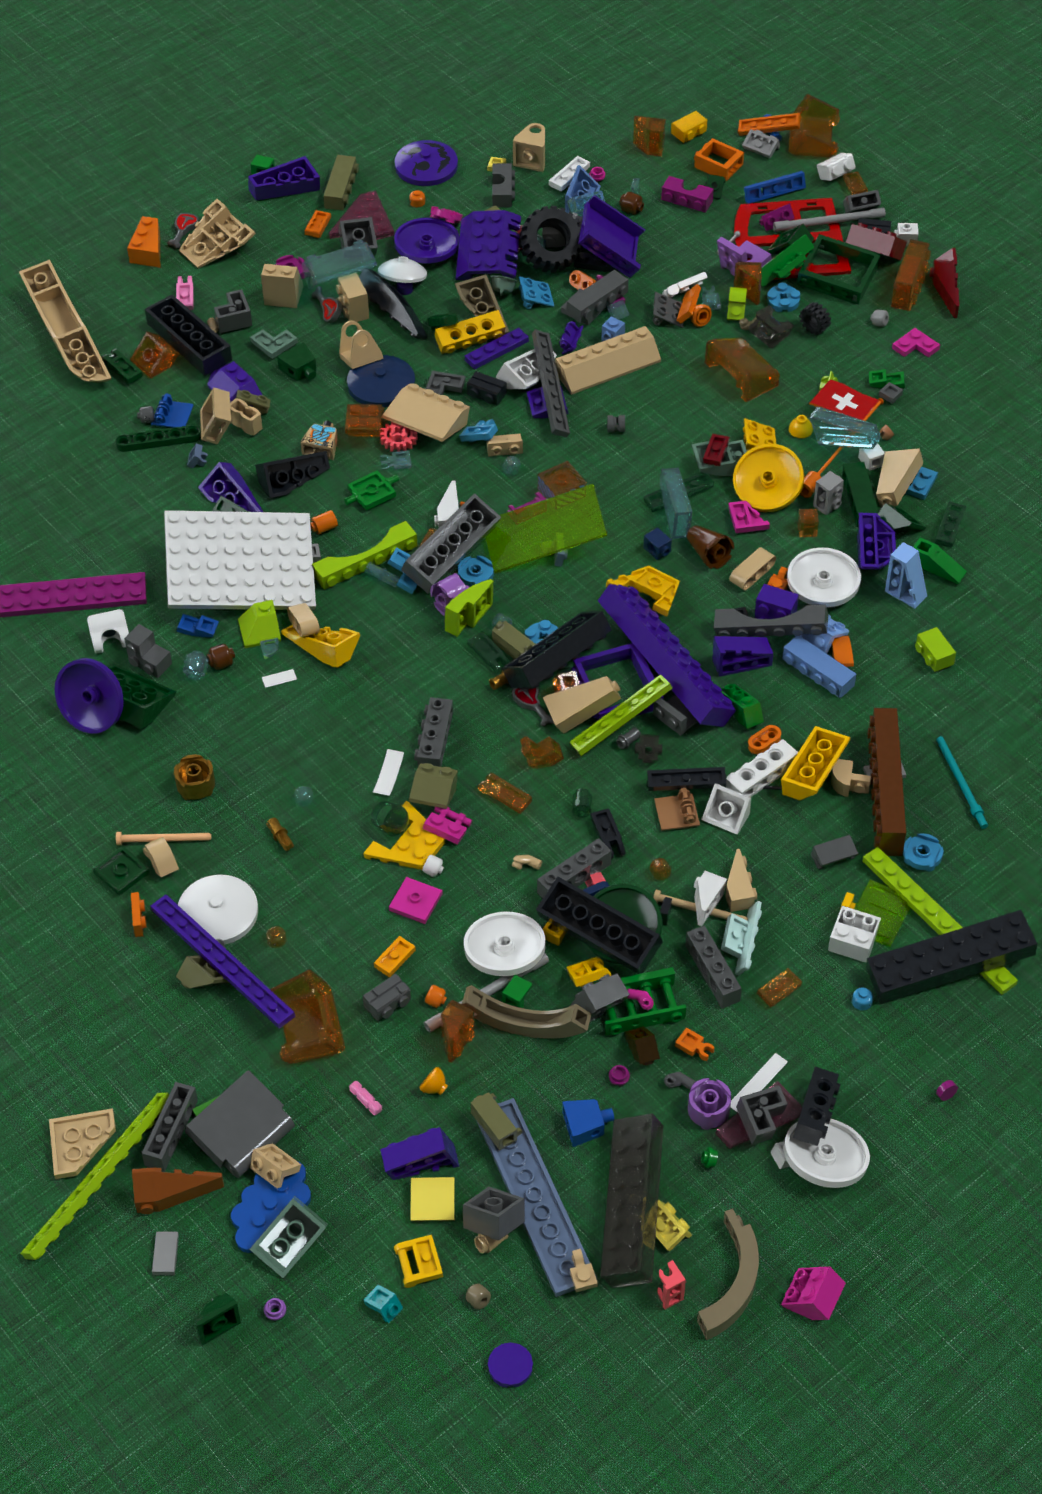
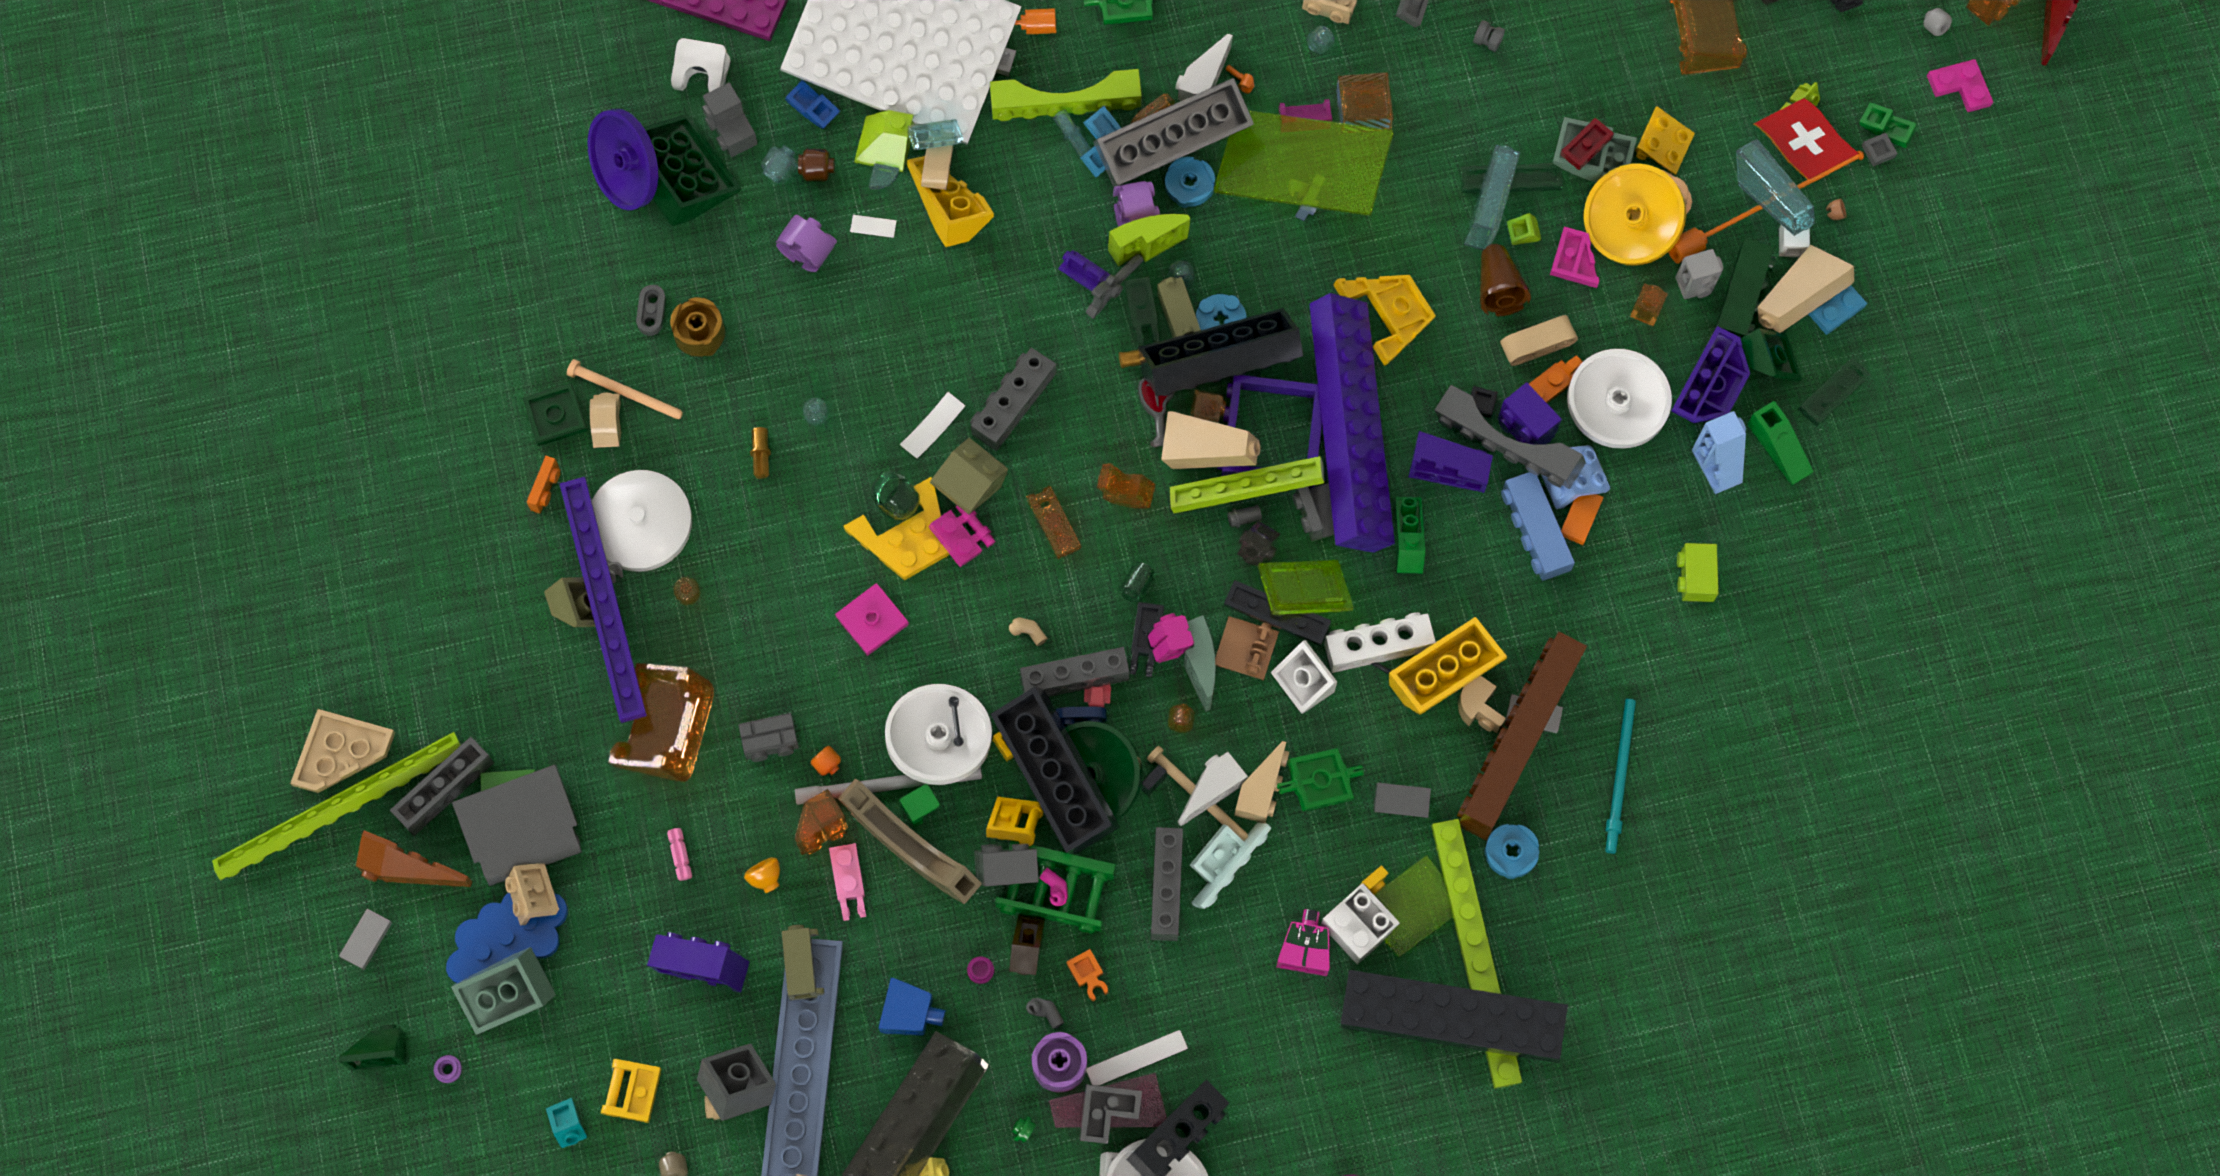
camera: 25 degrees right, 20 degrees up
(156, 786) = (651, 311): none -> dark grey plate
(241, 699) = (805, 242): none -> medium lavender brick
(294, 604) = (935, 134): none -> clear light blue plate
(394, 956) = (806, 685): light orange plate -> none
(433, 866) = (915, 583): white piece -> none
(433, 1199) = (686, 1021): light yellow slope -> none
(442, 647) = (1082, 270): none -> dark purple hinge
(461, 646) = (1111, 287): none -> dark grey piece
(493, 1061) = (848, 878): none -> bright pink hinge
(504, 921) = (954, 703): none -> black hinge
(627, 818) = (1170, 637): none -> dark pink brick
(654, 825) = (1200, 661): none -> sand green slope
(657, 543) = (1438, 247): dark blue brick -> none
(694, 757) = (1305, 587): none -> clear neon green piece
(703, 516) = (1524, 229): none -> lime slope
(763, 739) = (1408, 597): orange plate -> none
(774, 863) = (1320, 779): none -> green plate
(779, 987) = (1230, 949): clear orange plate -> none
(801, 427) = (1724, 149): yellow brick -> none
(828, 964) = (1306, 946): none -> dark pink torso
(862, 999) = (1321, 1012): dark azure piece -> none

